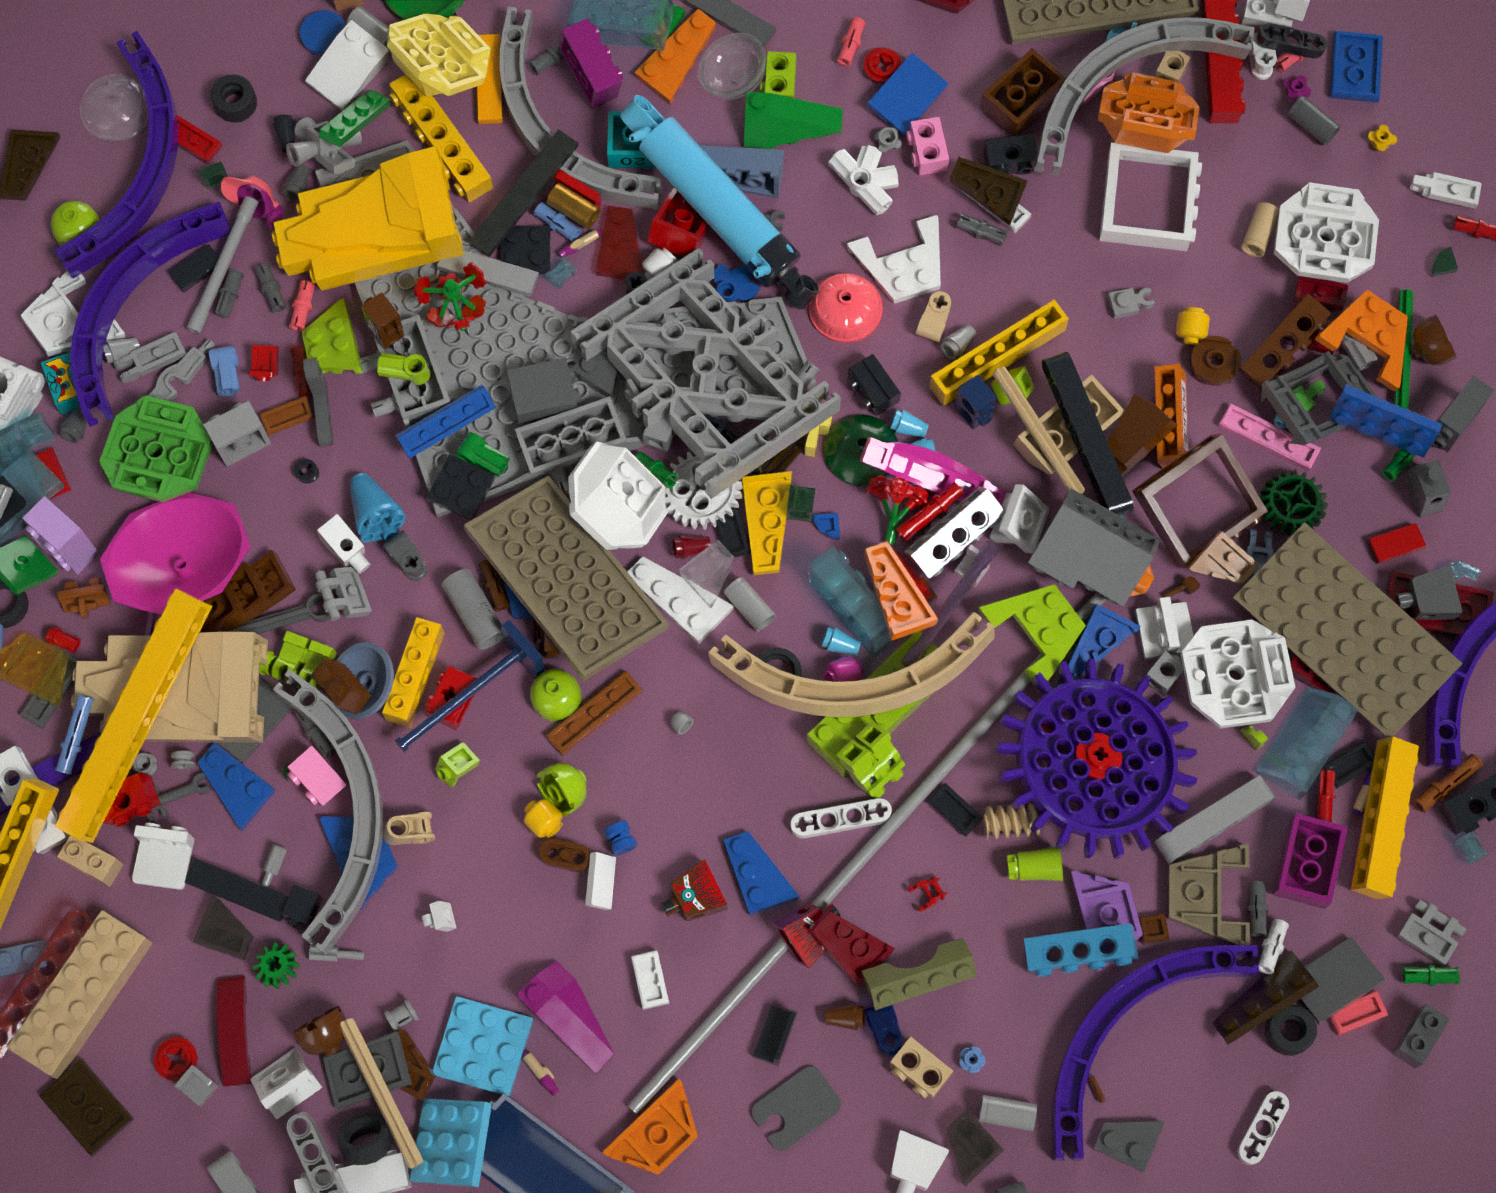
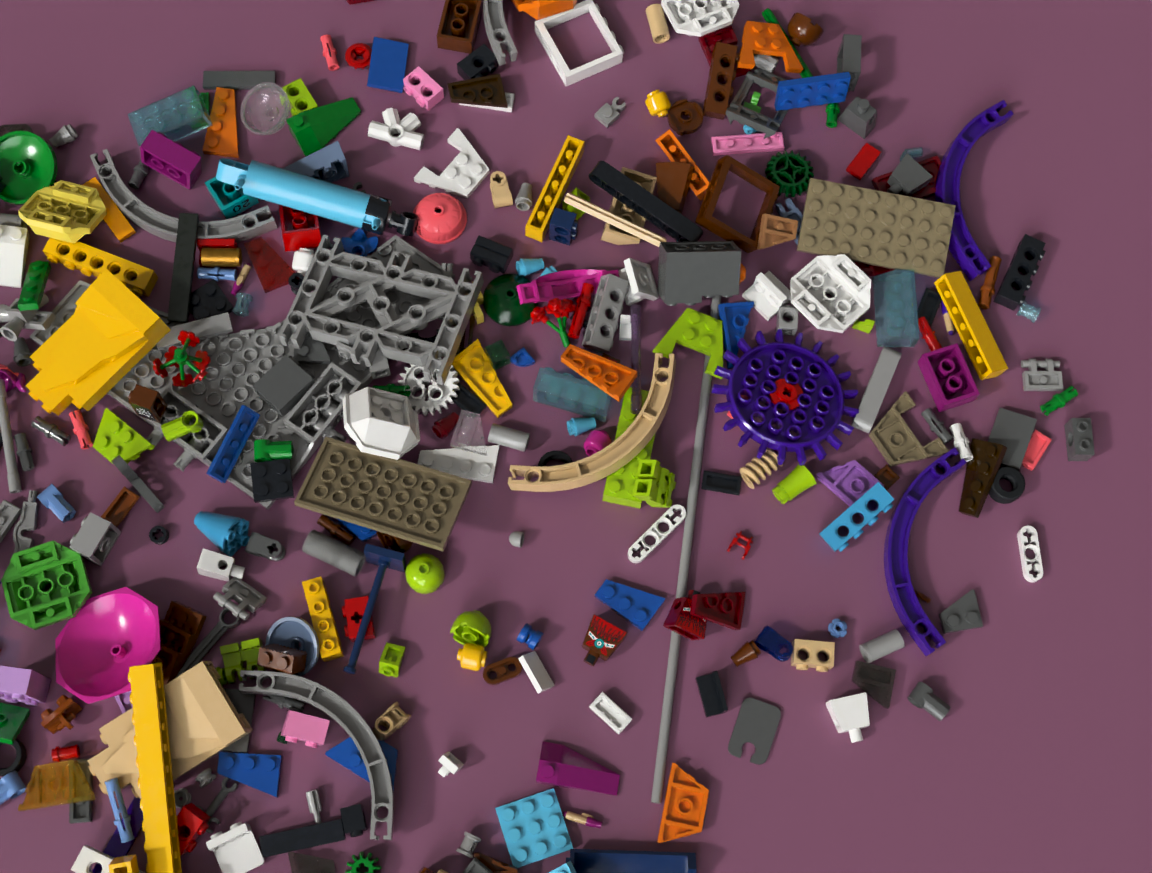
camera: 40 degrees left, 0 degrees up
(264, 362) = (80, 481): red bracket -> none
(298, 355) = (110, 471): clear red pin -> none
(334, 954) = (396, 836): light grey axle -> none
(594, 713) = (457, 569): dark orange tile -> none
(887, 133) = (394, 95): light grey plate -> none
(892, 985) = (760, 615): olive arch -> none
(982, 229) = (491, 120): dark grey pin -> none
(1189, 584) = (763, 259): reddish brown hand -> none

